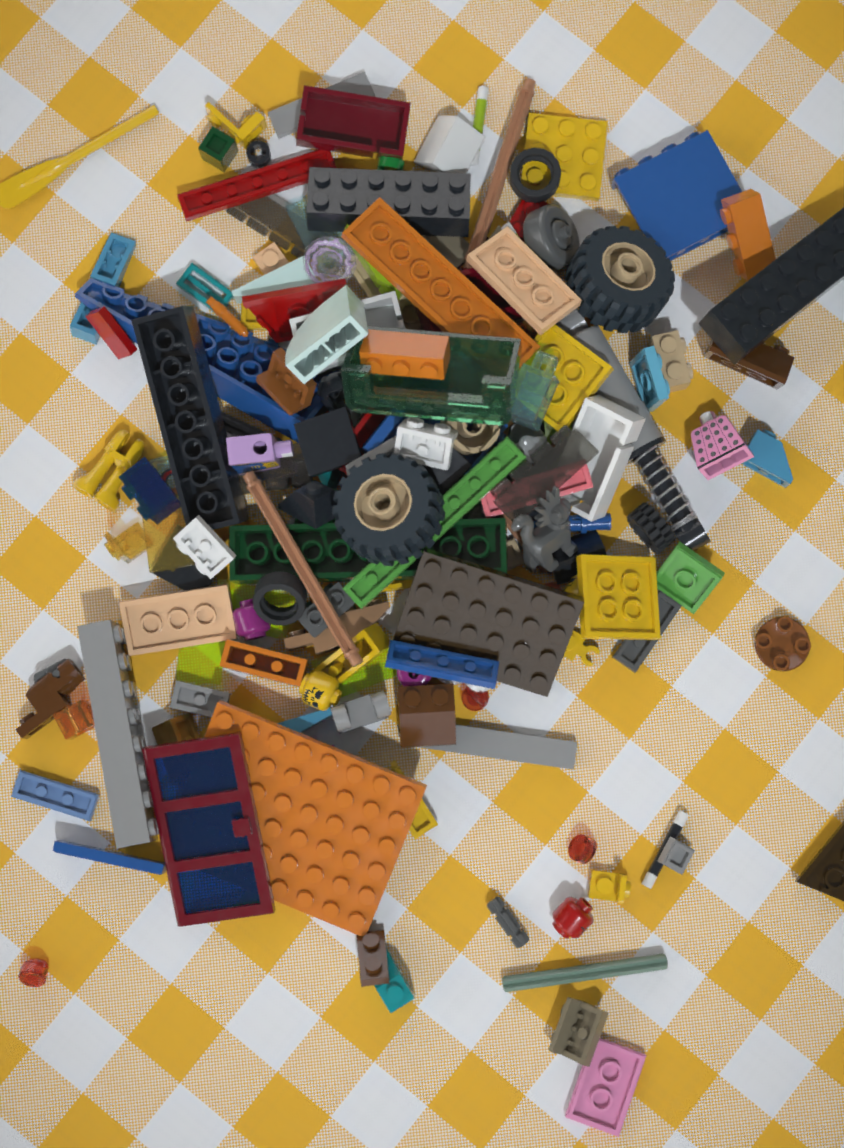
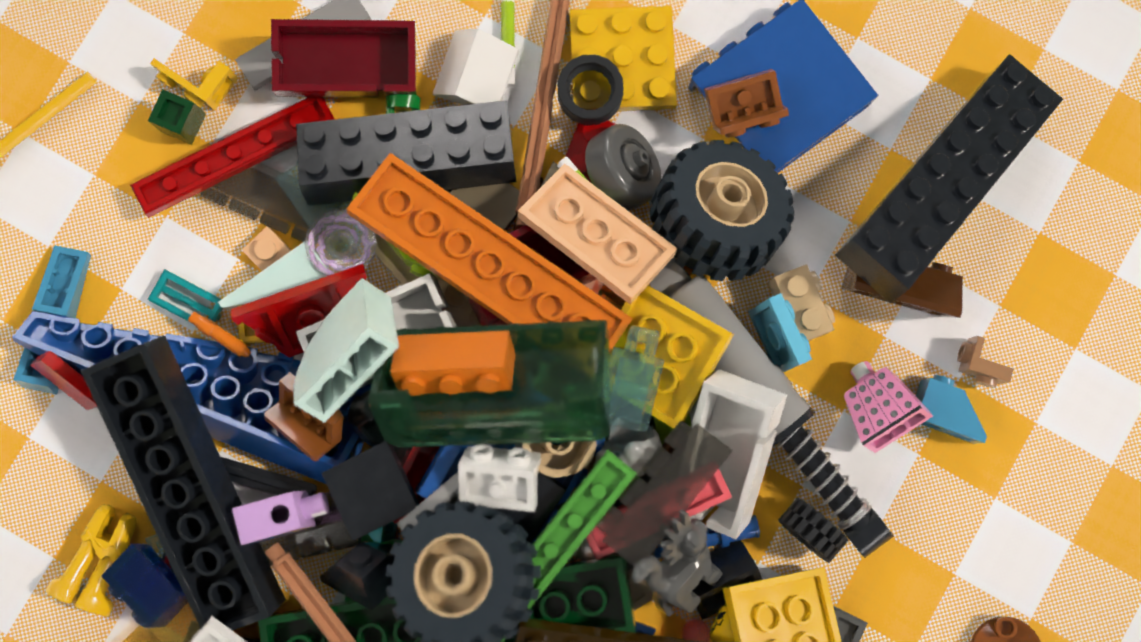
camera: 10 degrees left, 0 degrees up
(265, 150) = (221, 110): black bush -> none
(650, 202) = (745, 103): none -> dark orange bracket
(687, 577) = (871, 588): bright green tile -> none
(747, 233) = (877, 124): orange brick -> none
(801, 432) = (985, 371): none -> medium nougat bracket

